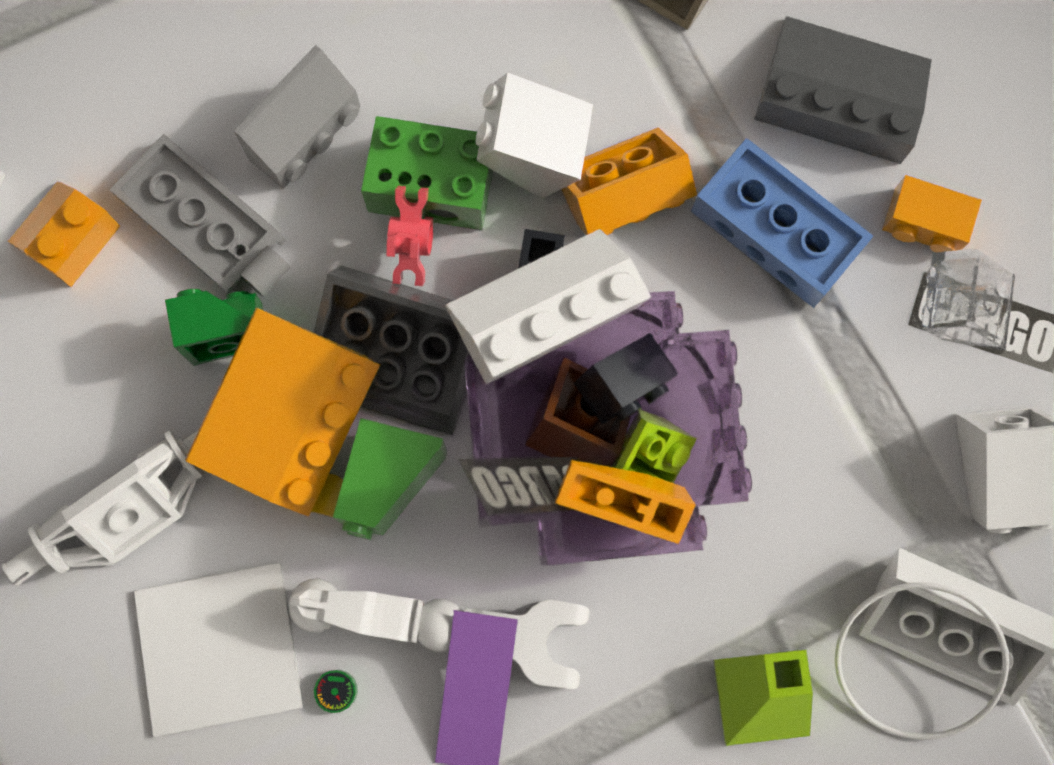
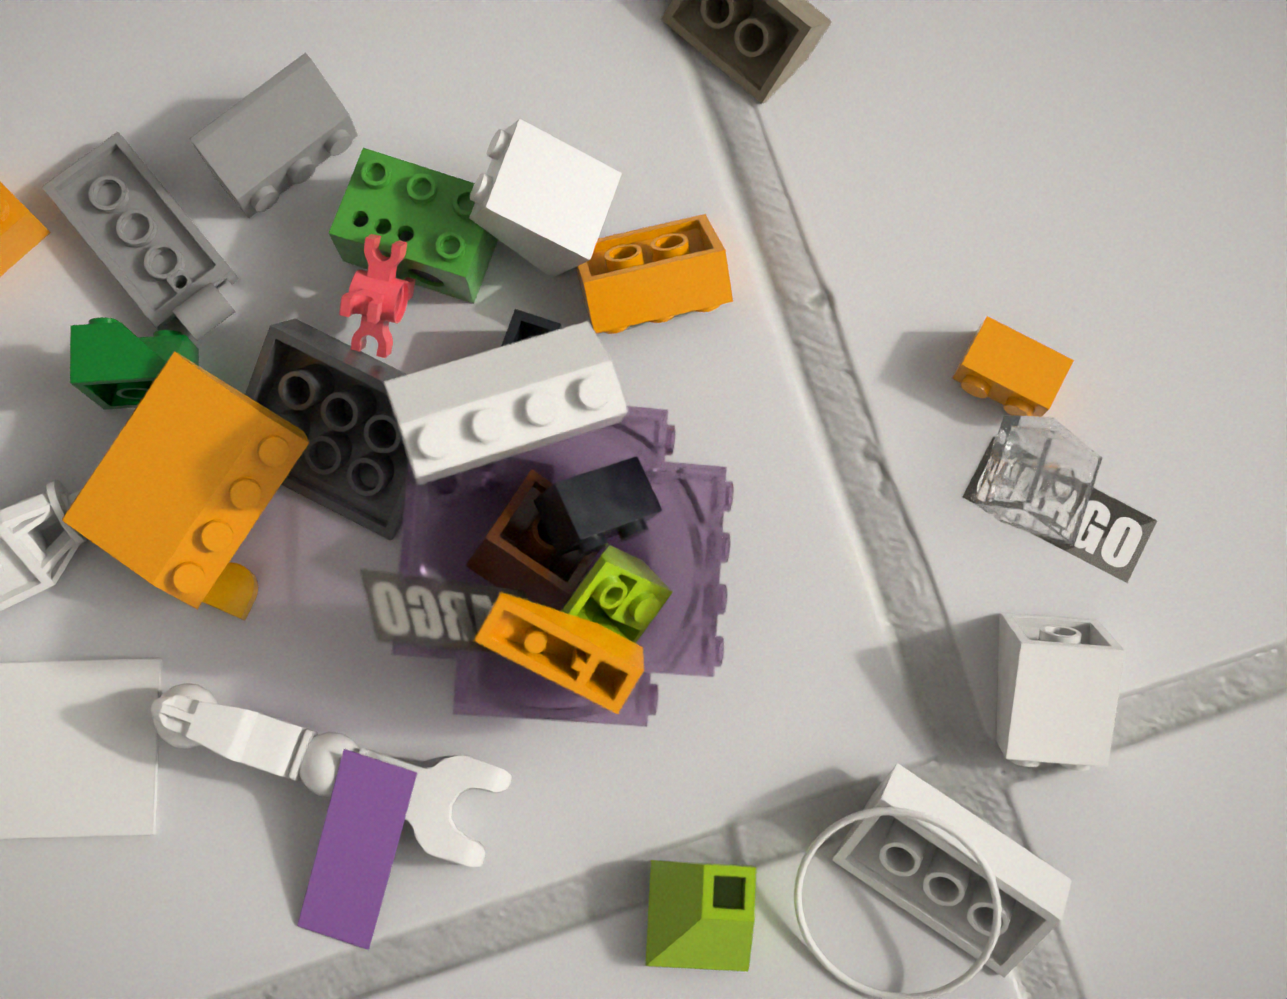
camera: 10 degrees right, 0 degrees up
(335, 691) = (195, 821): tile -> none
(384, 476) = (293, 577): bright green slope -> none
(783, 198) = (830, 320): medium blue brick -> none
(845, 90) = (935, 203): dark grey slope -> none

